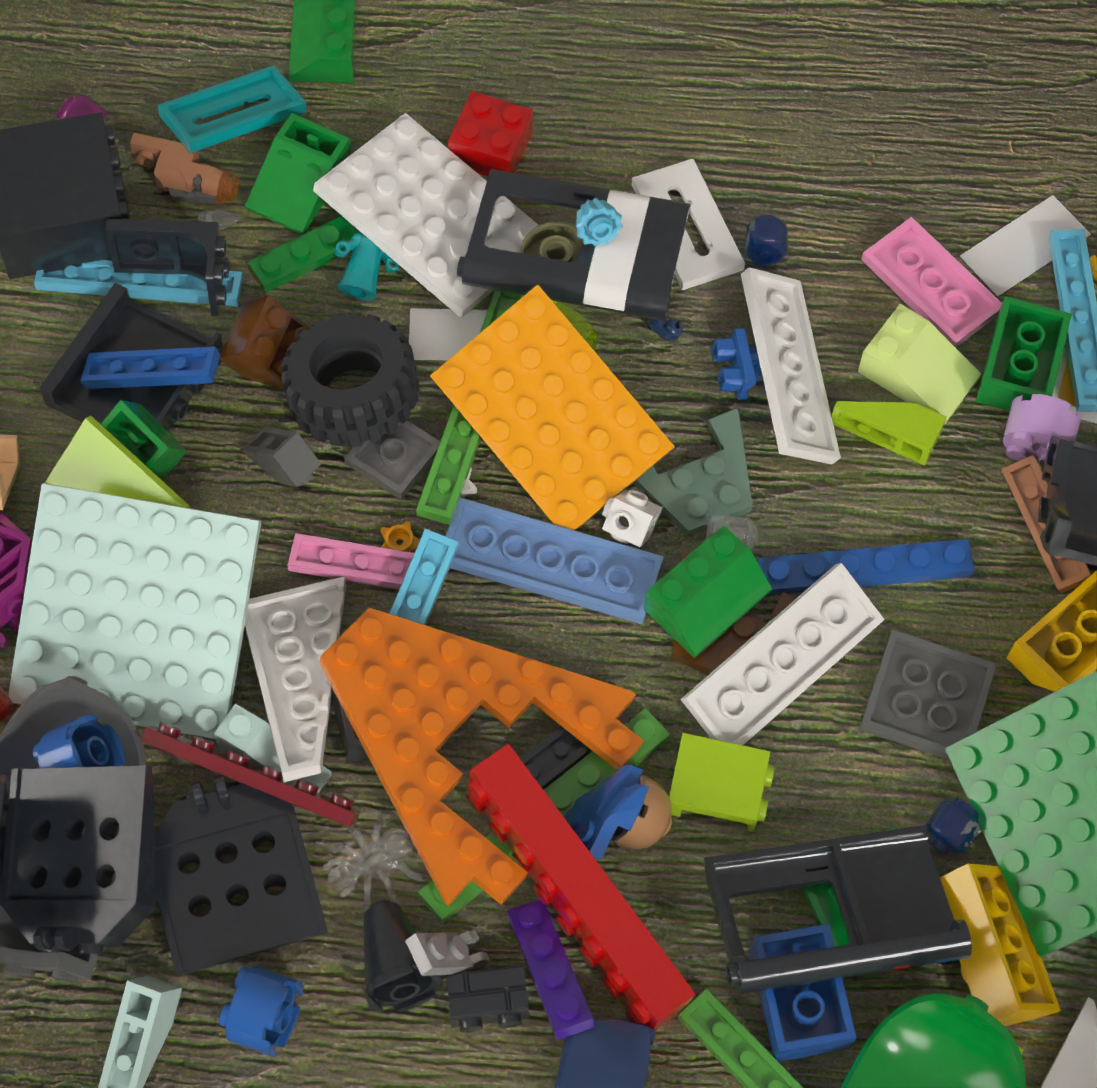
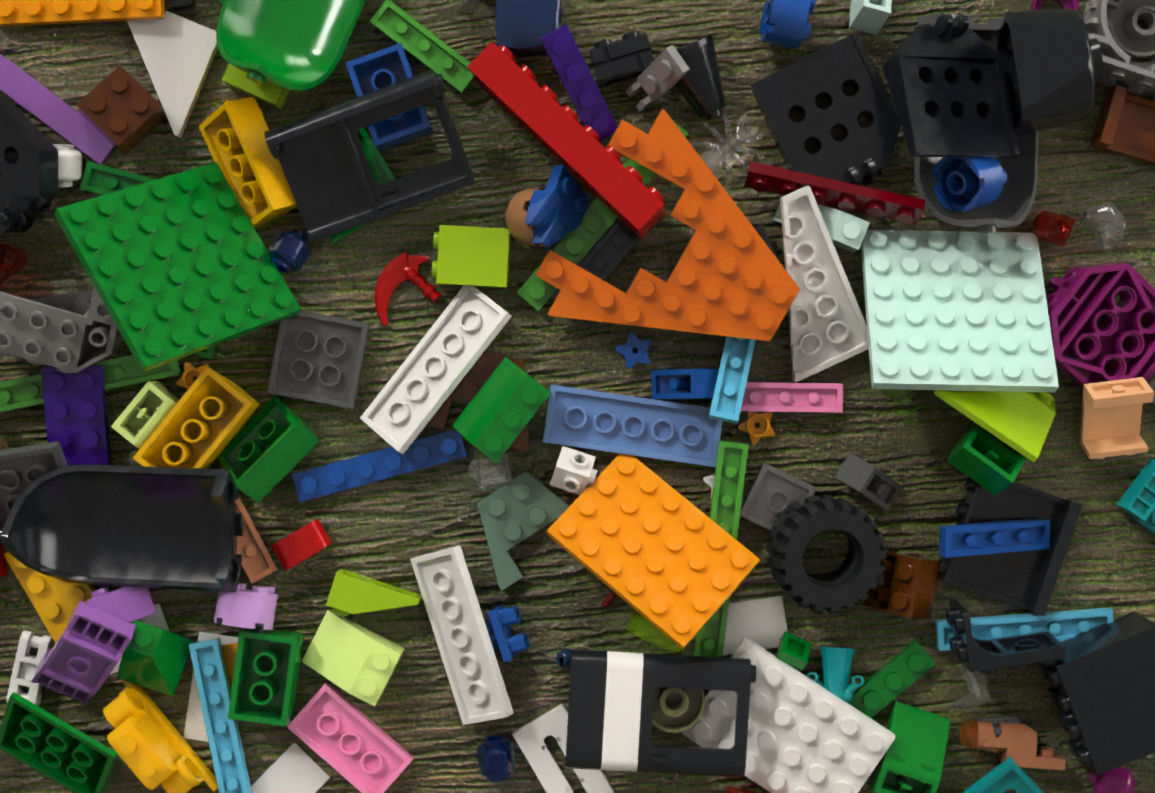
camera: 170 degrees right, 25 degrees up
(407, 295) = (793, 650): none -> green tile
(479, 594) = (683, 383): none -> blue slope
(537, 636) = (630, 357): none -> blue plate
(597, 222) = (642, 724): medium azure piece -> none
(819, 785) = (396, 272): none -> red piece
(969, 491) = (301, 544): none -> red beam
(1001, 601) = (267, 448): none -> green slope

